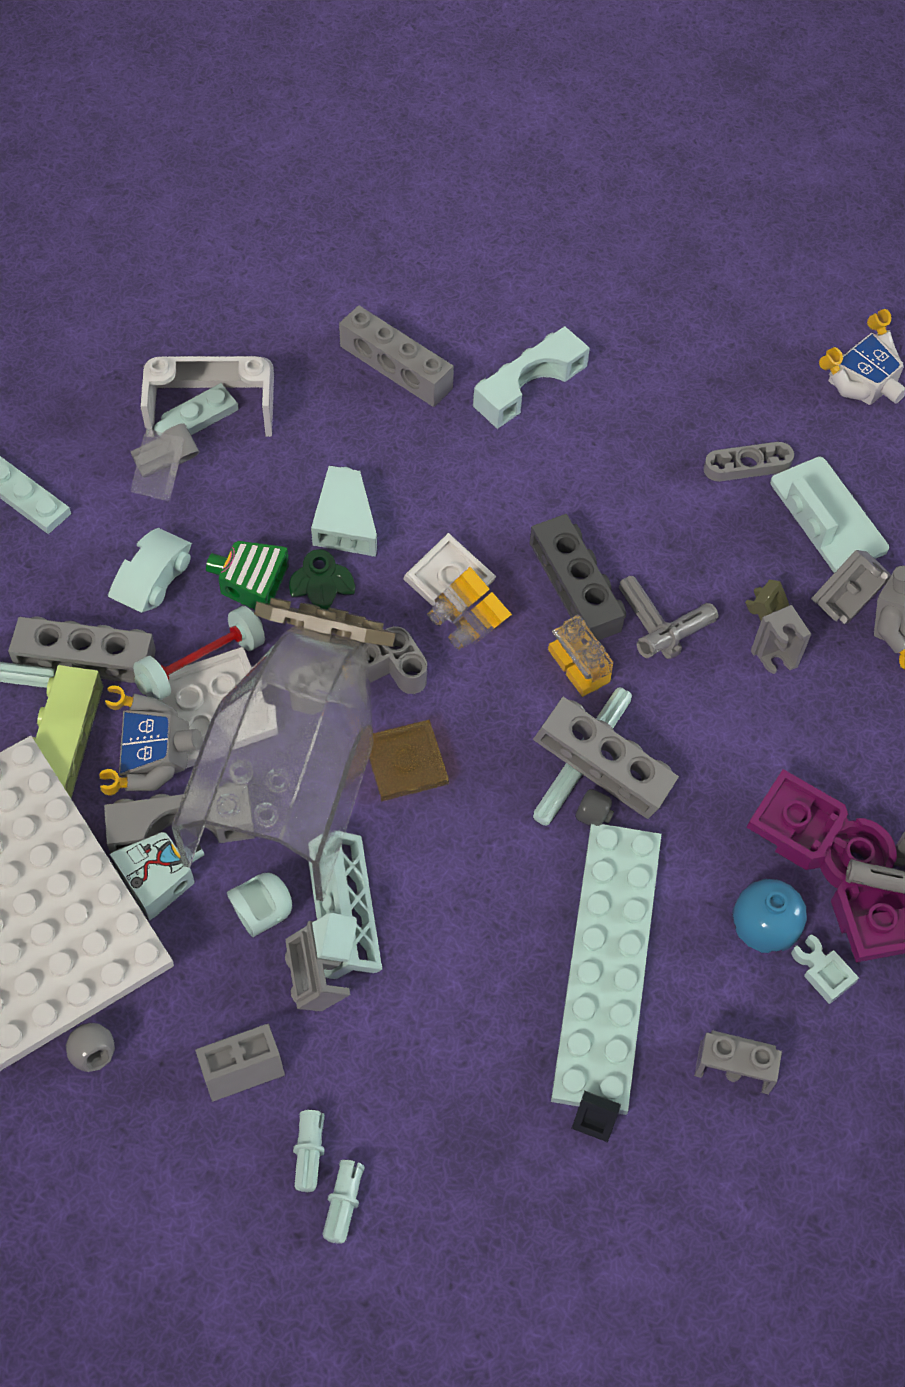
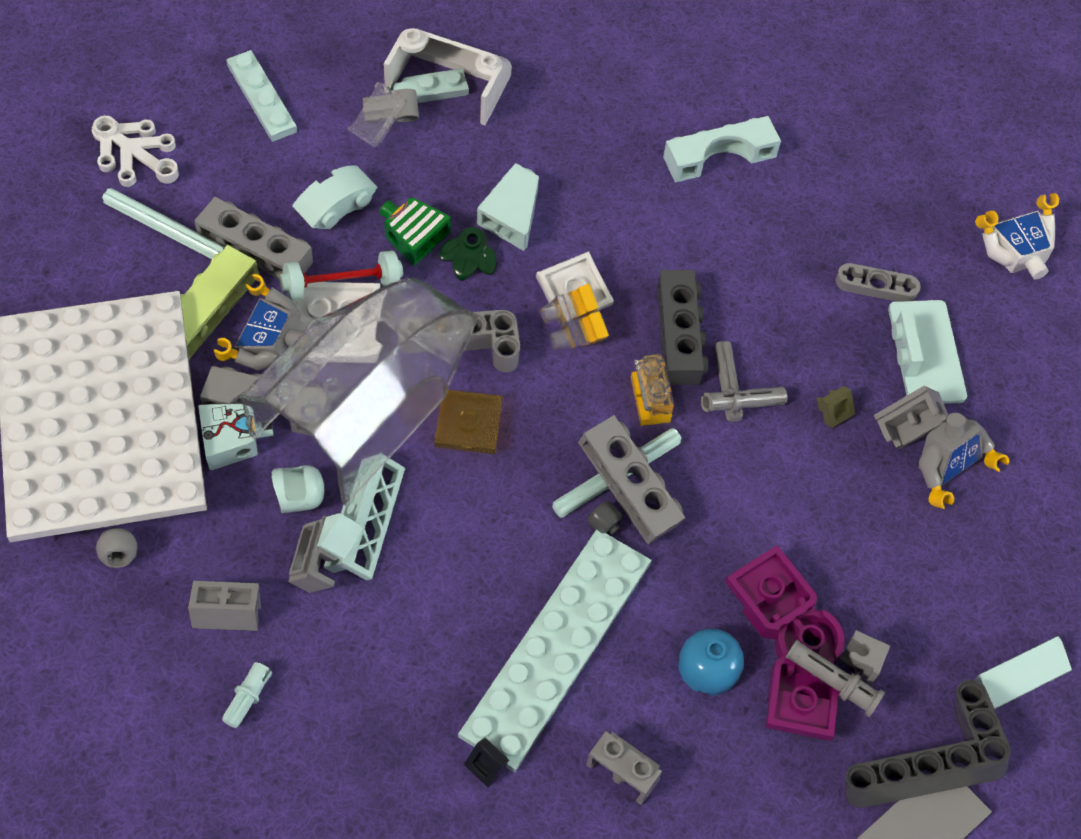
camera: 20 degrees right, 0 degrees up
(326, 621) = (441, 279): dark tan plate -> none
(343, 1201) = (254, 745): light aqua axle -> none
(396, 356) = (615, 94): light grey brick -> none
(781, 636) = (829, 436): light grey hinge -> none
(826, 973) = (737, 727): light aqua plate -> none

